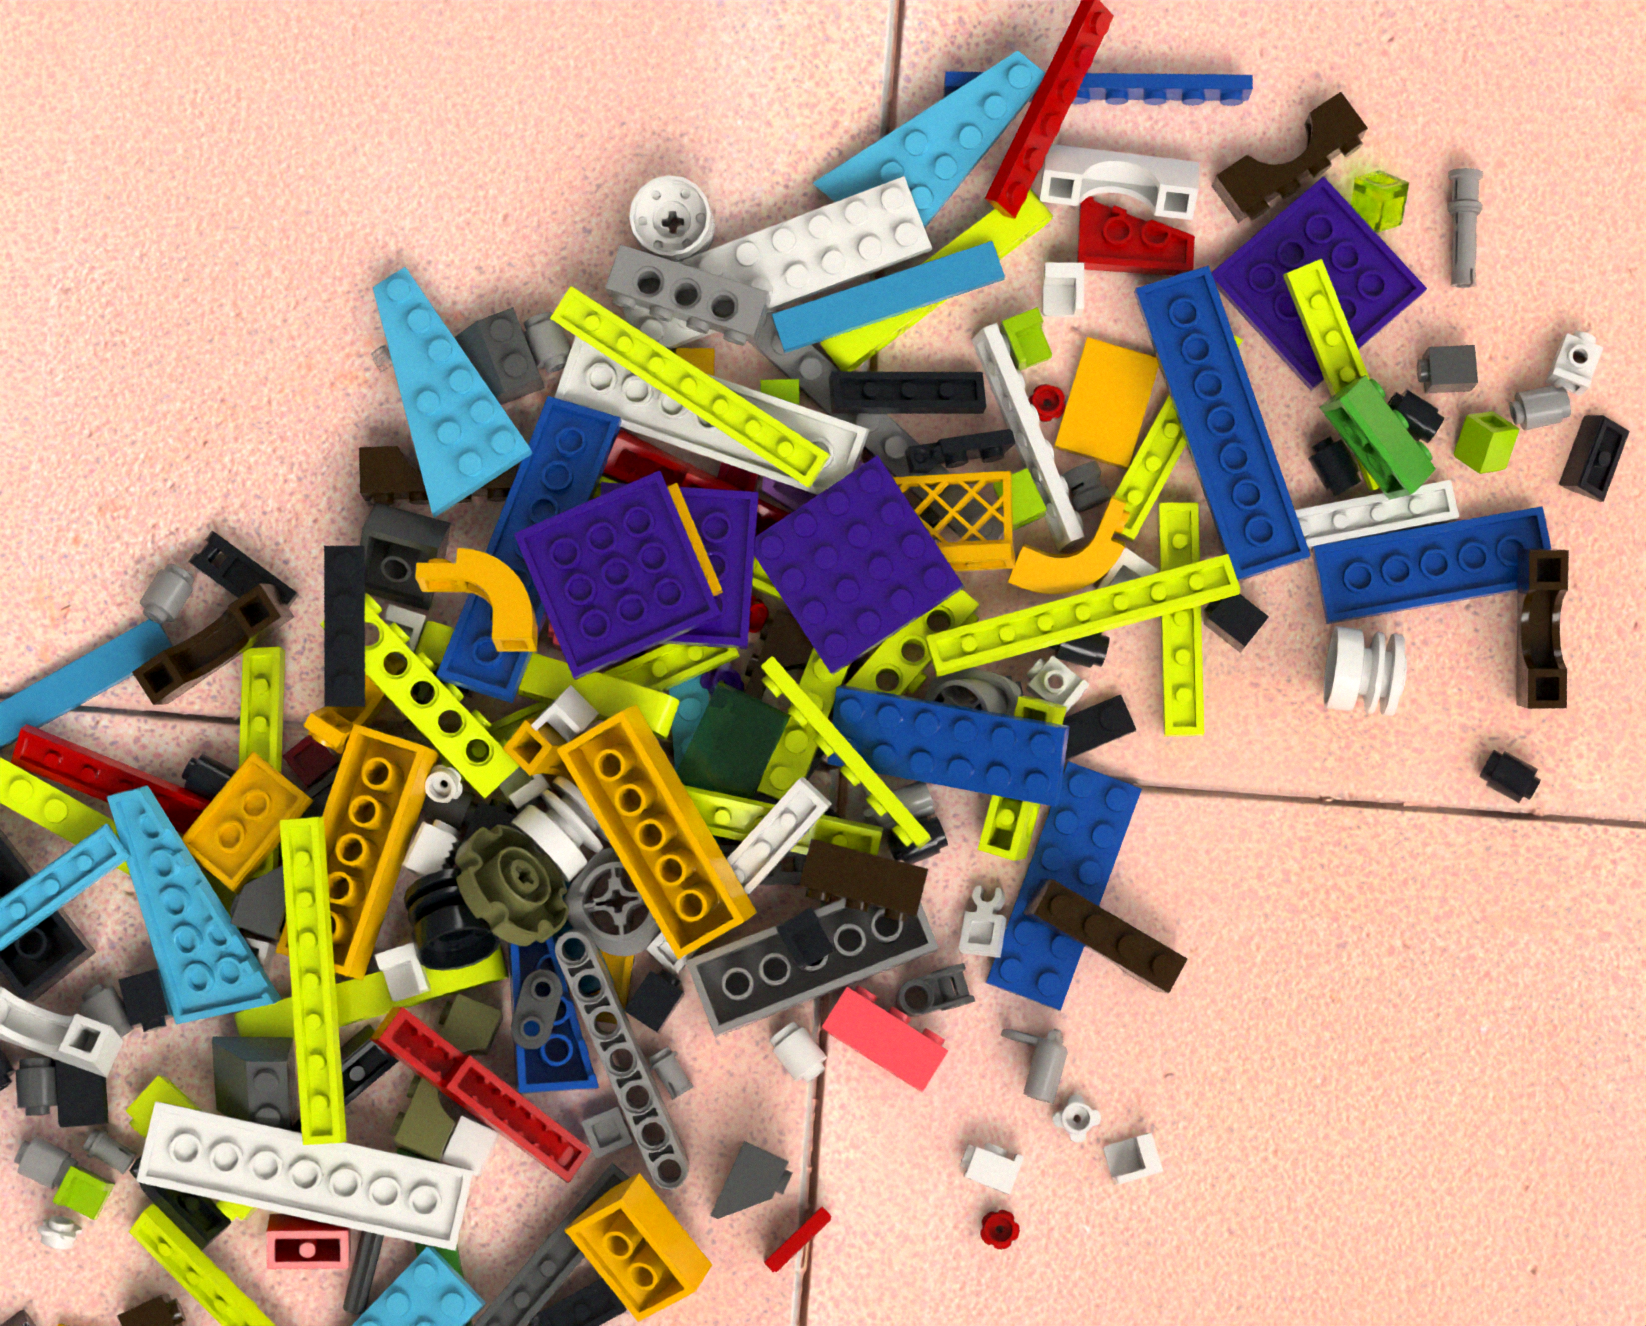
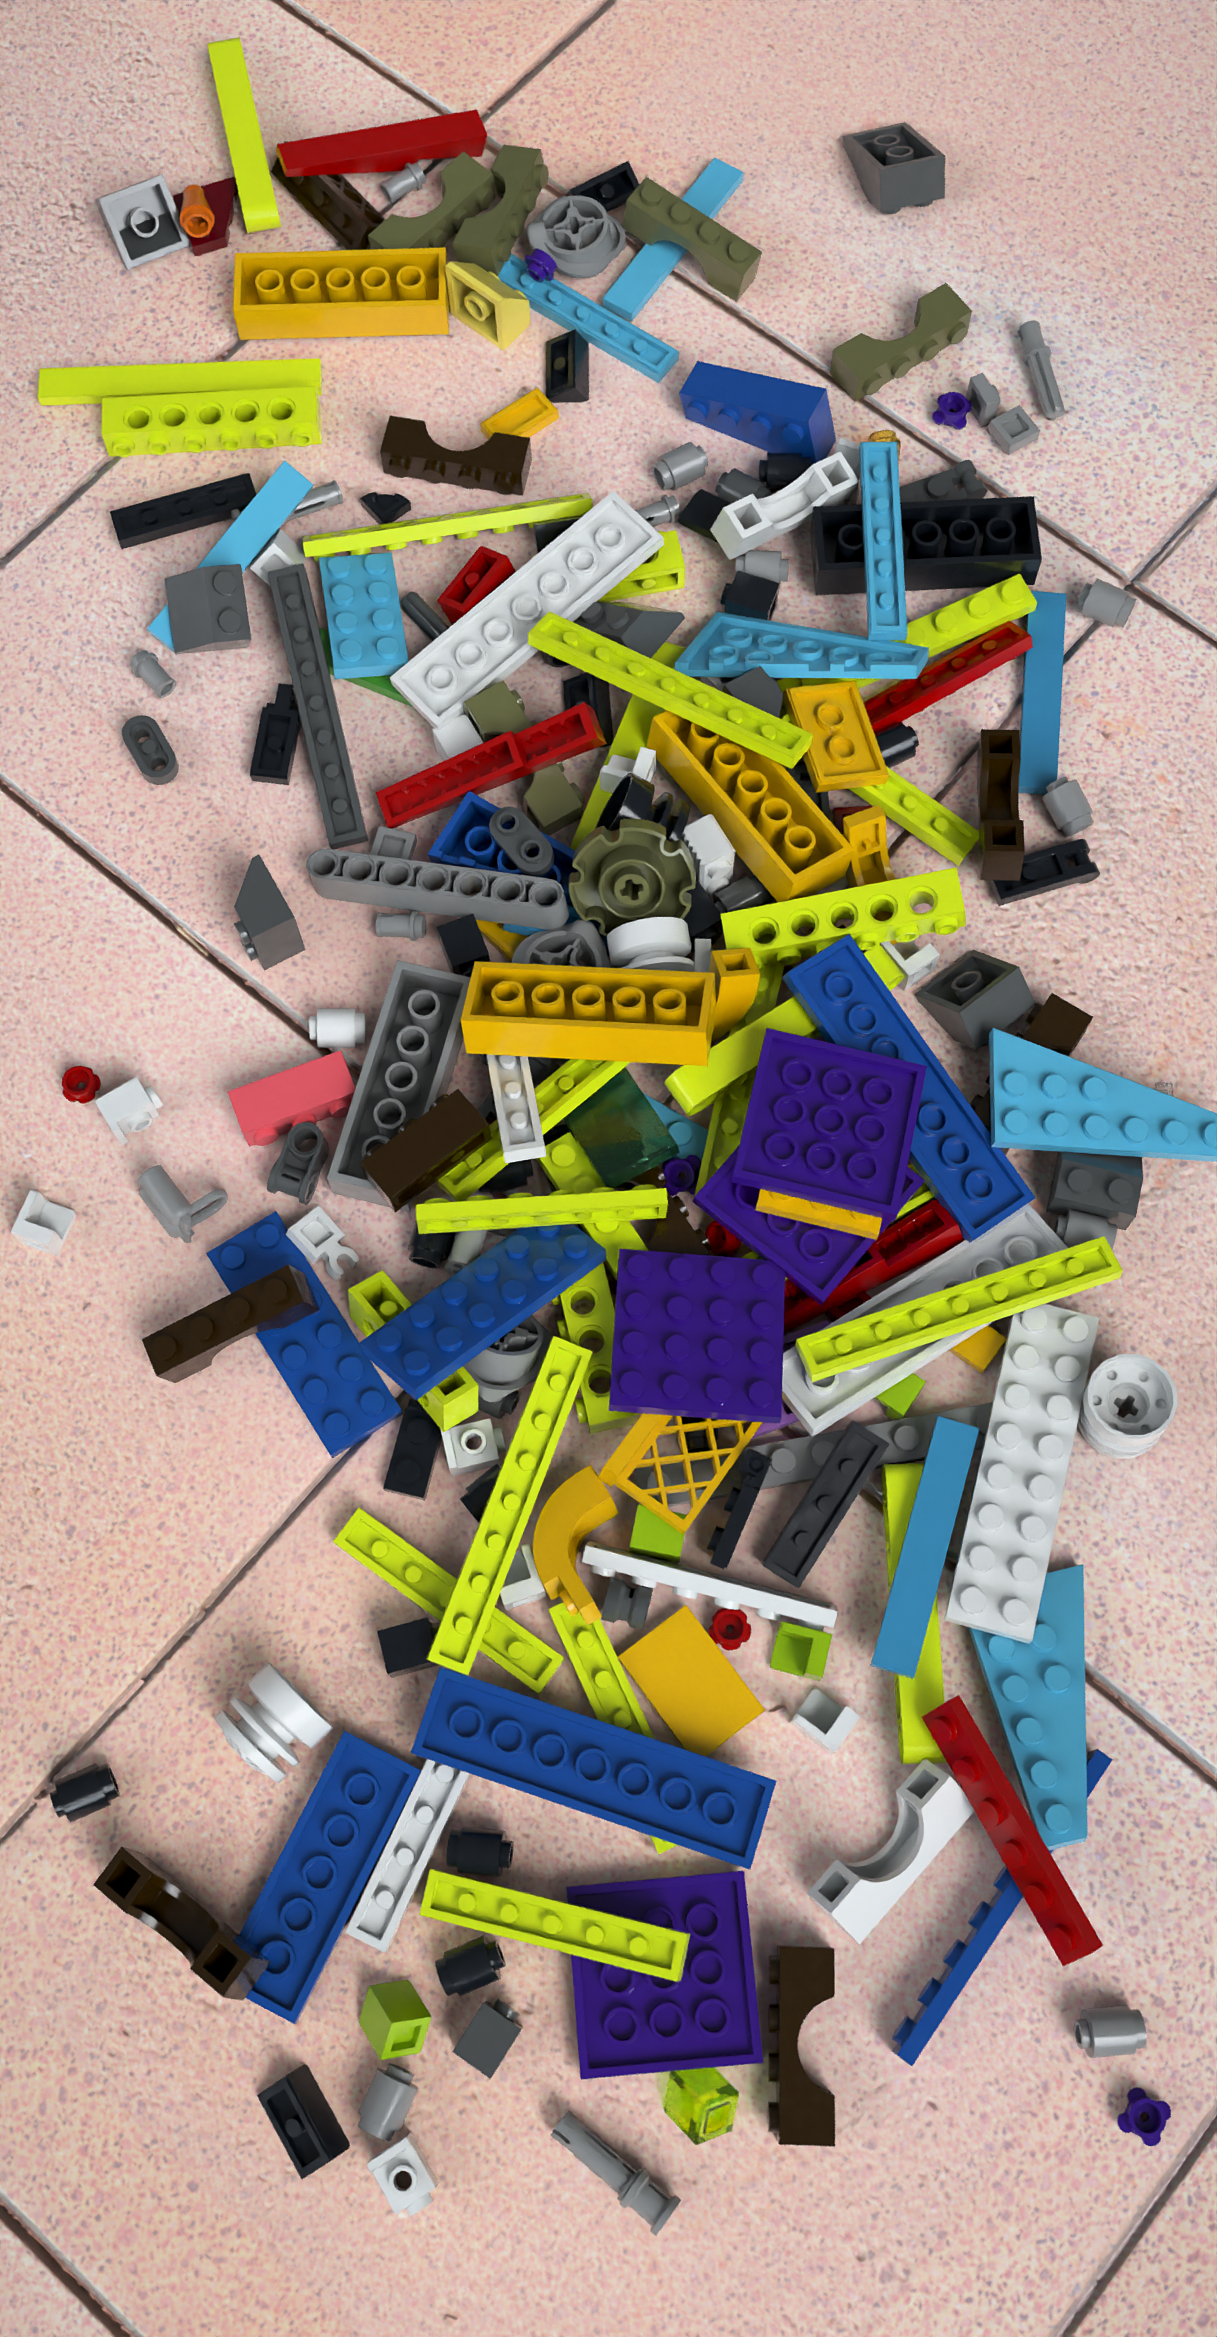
camera: 130 degrees right, 10 degrees down
(59, 1232) = (623, 446): white plate -> none
(83, 1192) = (641, 481): lime panel -> none
(344, 626) = (941, 882): black plate -> none
(440, 793) = (755, 892): white plate -> none
(488, 577) = (880, 1026): yellow arch -> none
(567, 714) = (740, 1011): white panel -> none
(635, 266) = (999, 1407): light grey brick -> none
(639, 1248) = (284, 809): yellow slope -> none
(798, 1240) = (197, 929): red tile -> none
(805, 938) = (415, 1071): black panel -> none
(1076, 1107) = (105, 1197): white plate -> none
(1127, 244) = (827, 1818): red wing -> none
(1379, 437) = (466, 1905): bright green slope -> none

